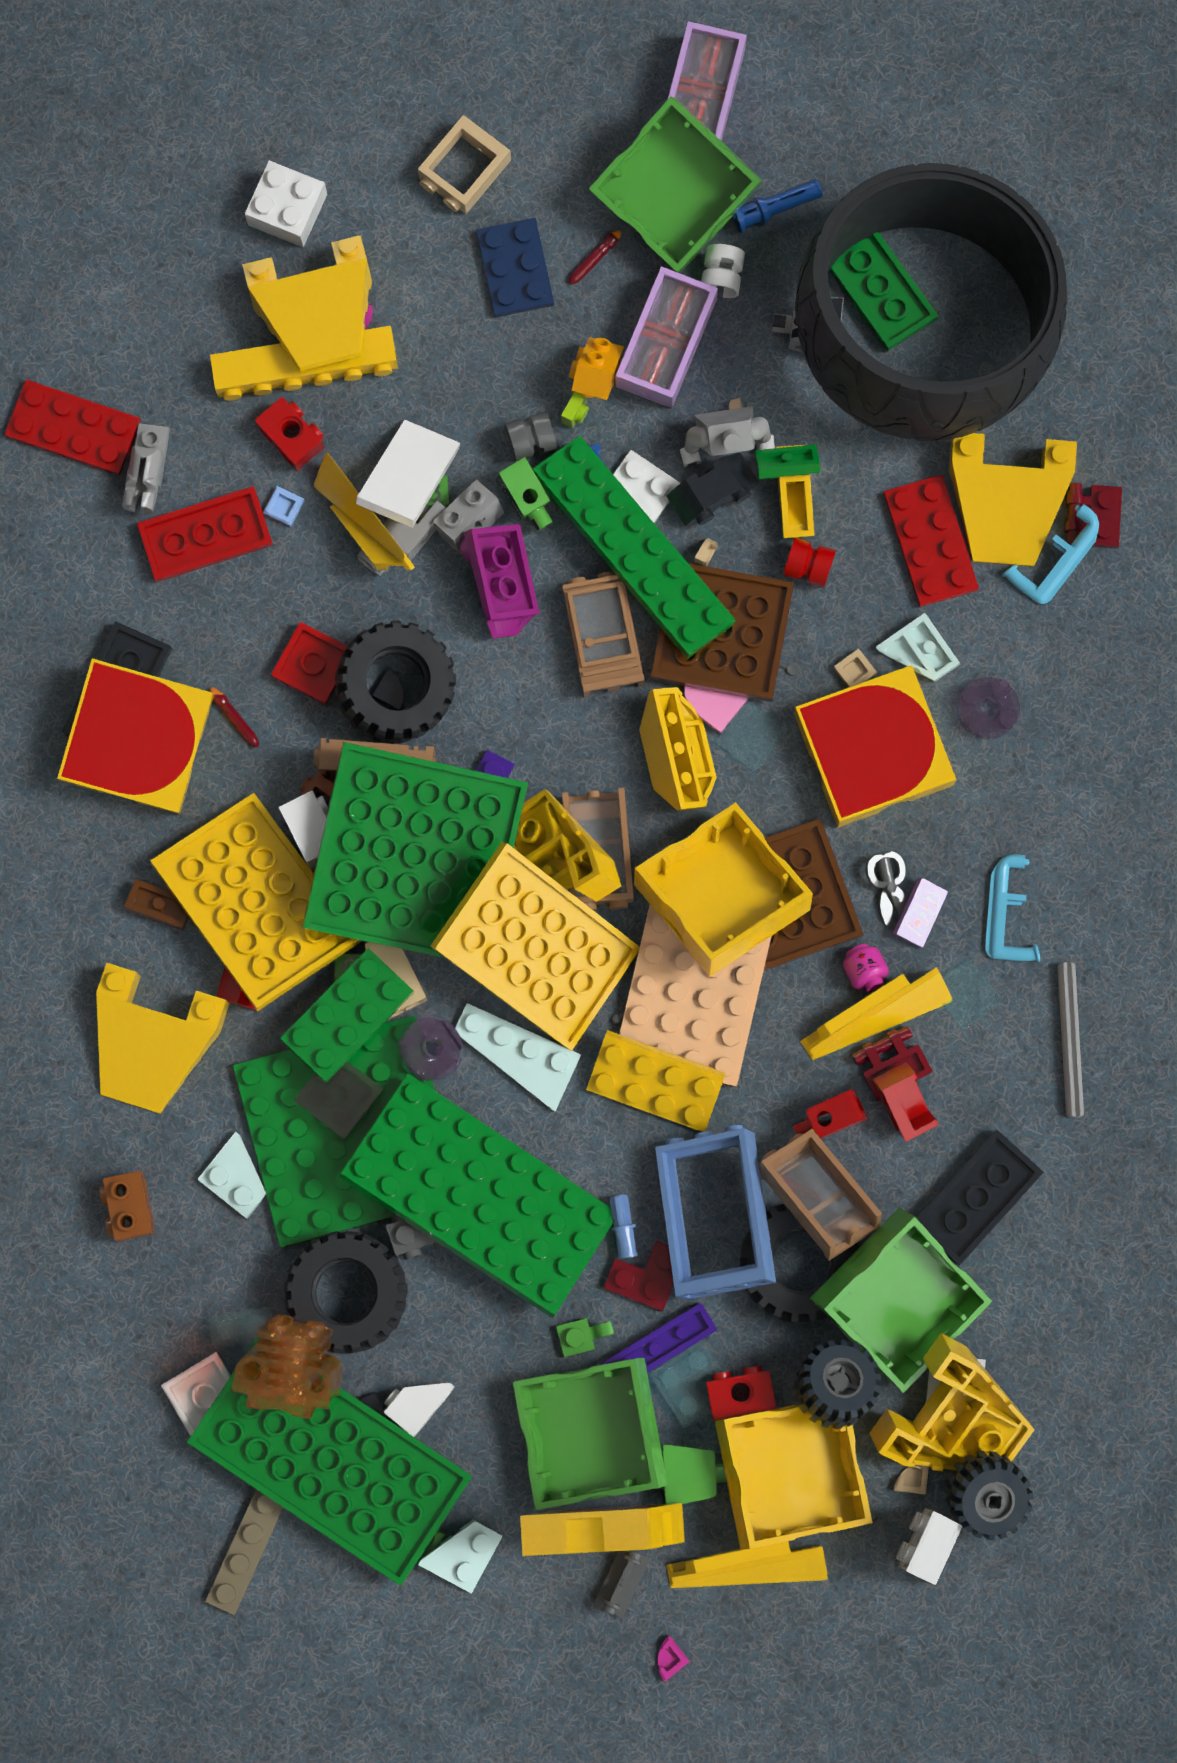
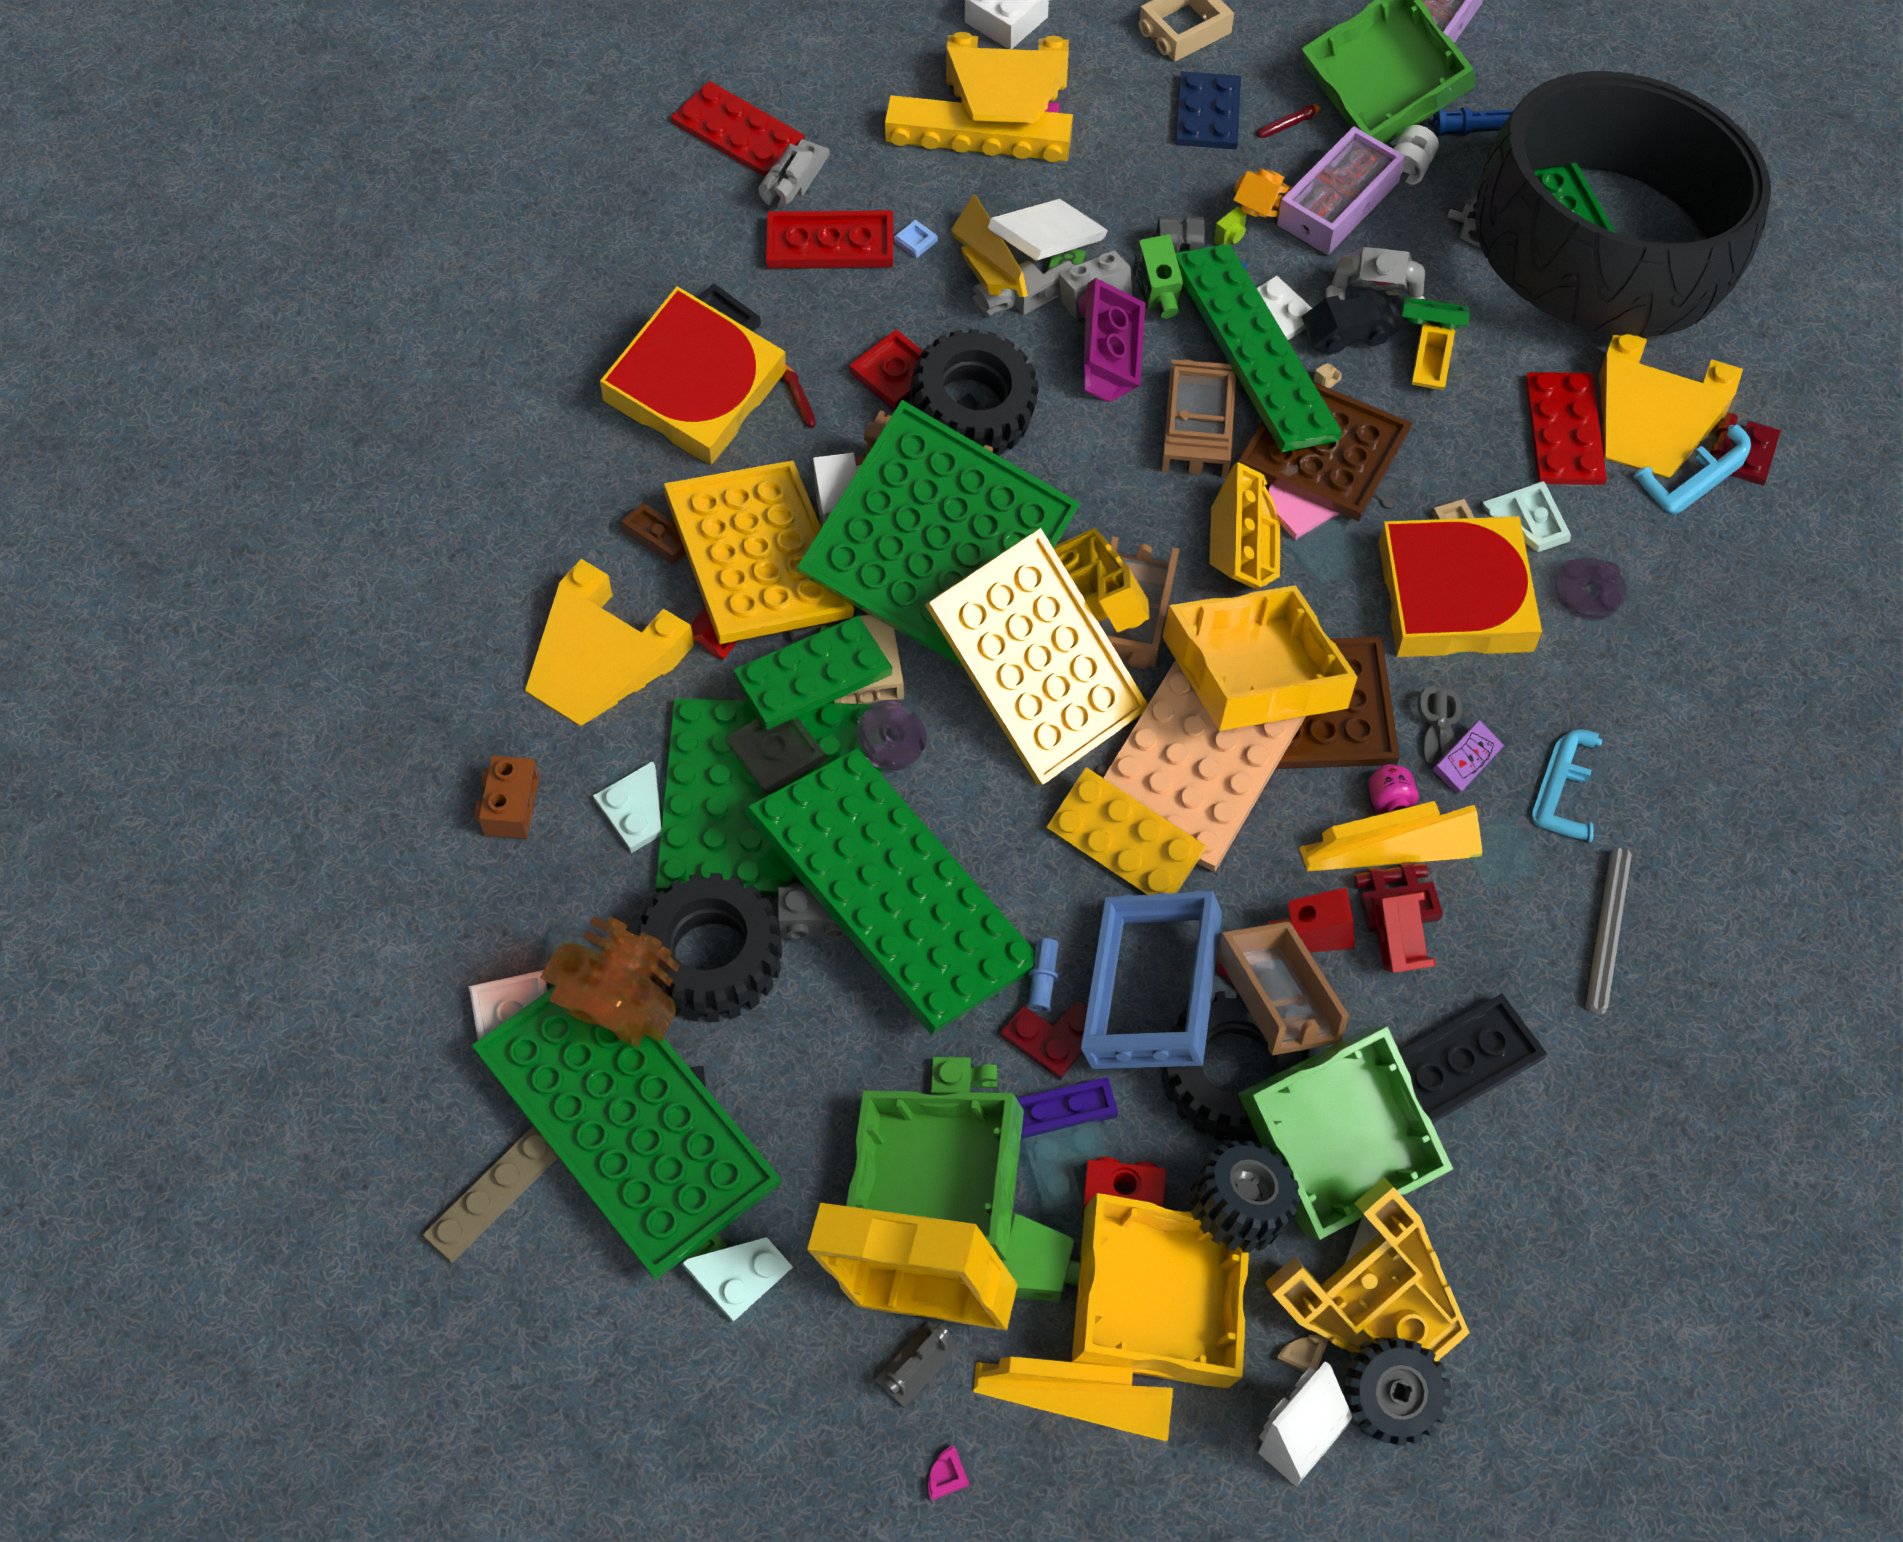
camera: 15 degrees right, 20 degrees down
(277, 420) = (943, 179): red brick -> none
(416, 1405) = (749, 1089): white slope -> none
(526, 1057) = (991, 779): light aqua wing -> none
(809, 562) = (1432, 408): red wheel -> none

